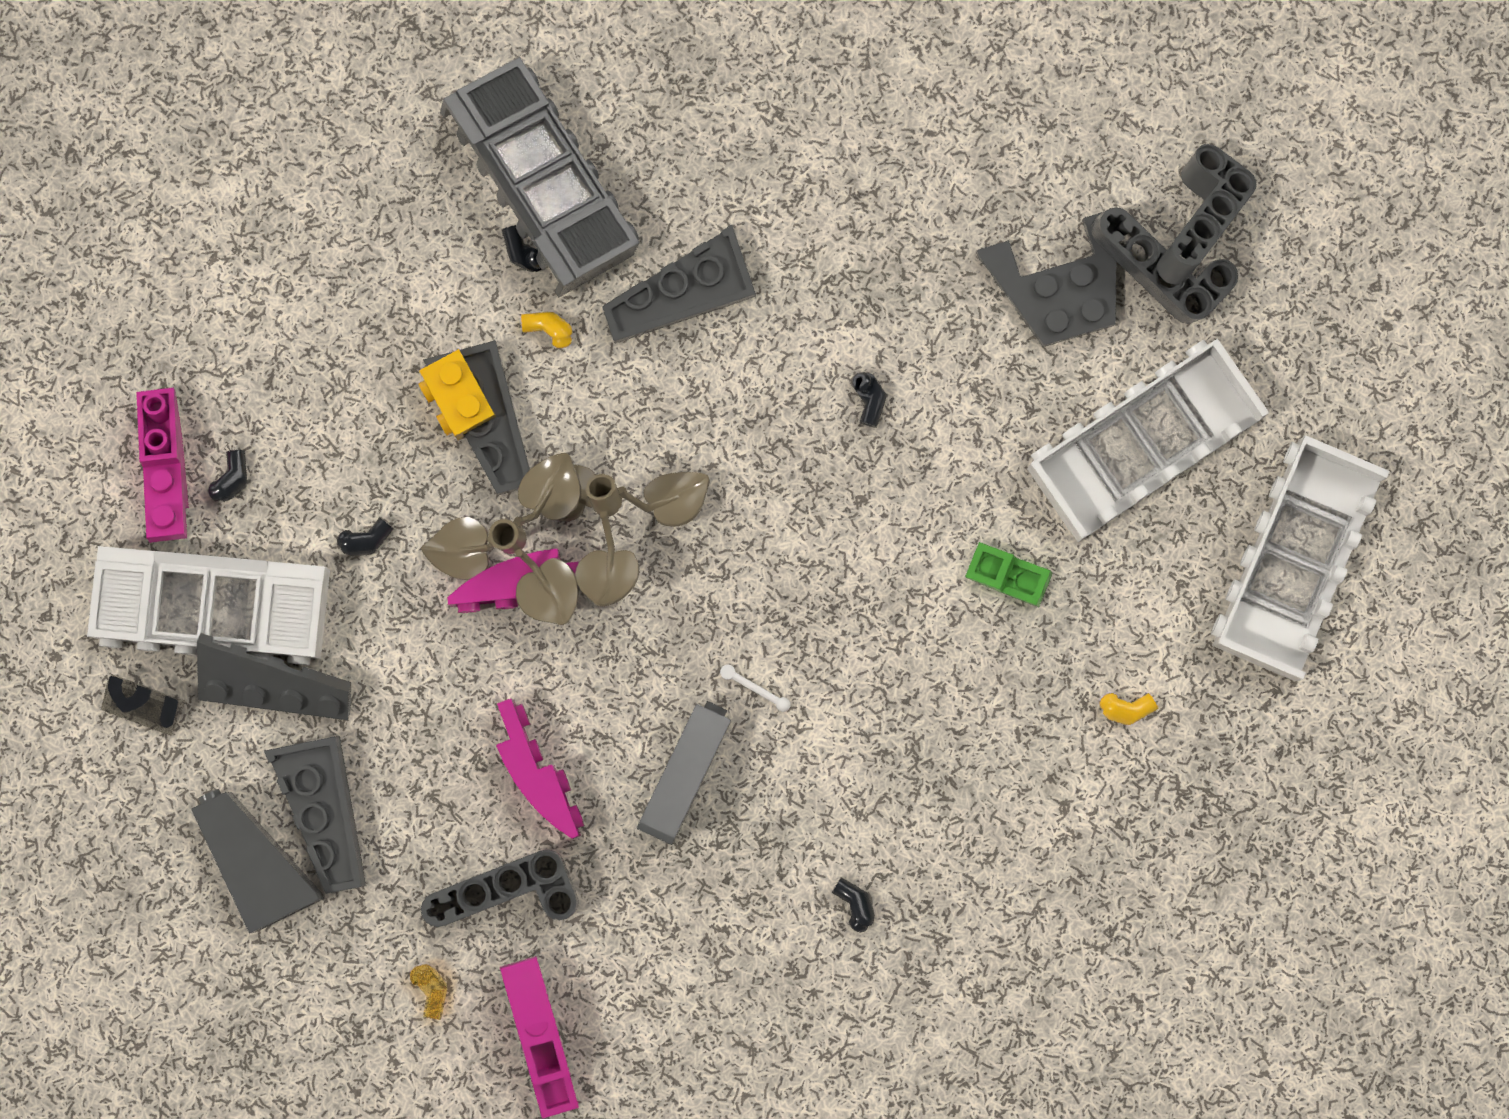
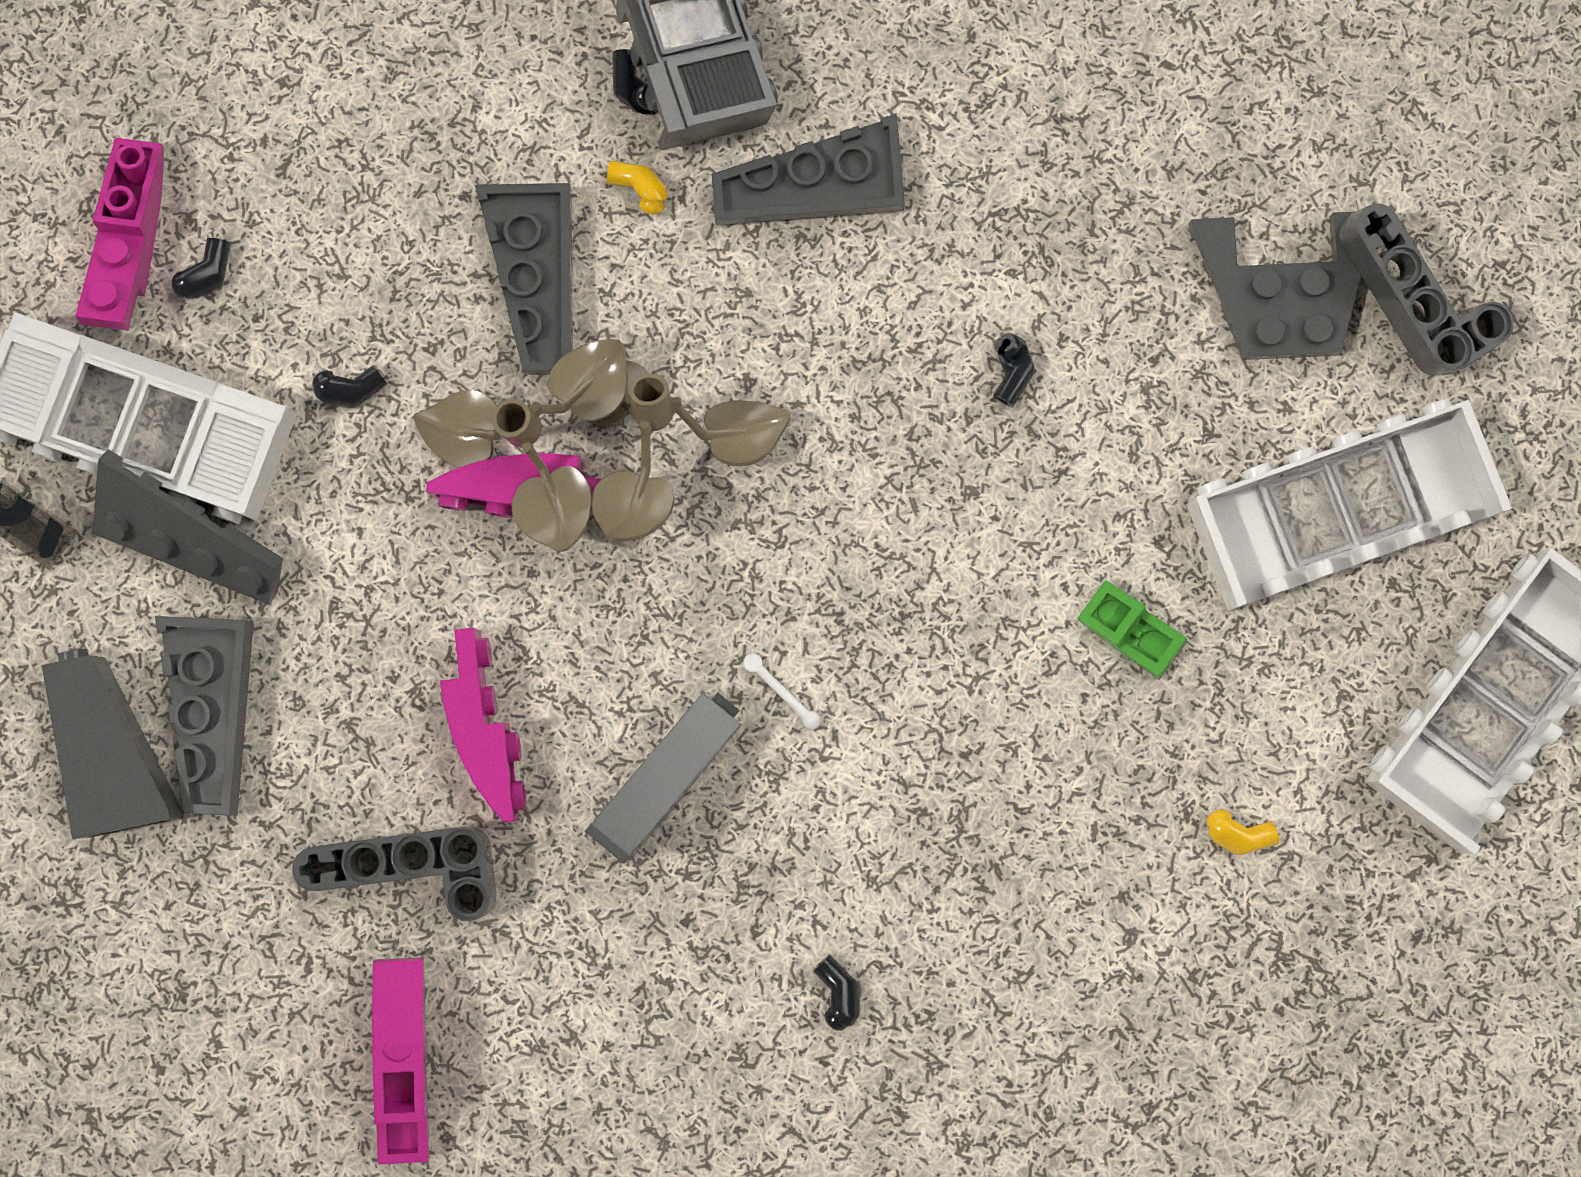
camera: 15 degrees right, 0 degrees up
(433, 987) = (288, 963): clear yellow arm -> none
(456, 394) = (504, 237): yellow bracket -> none
(1225, 190) = (1518, 220): dark grey beam -> none

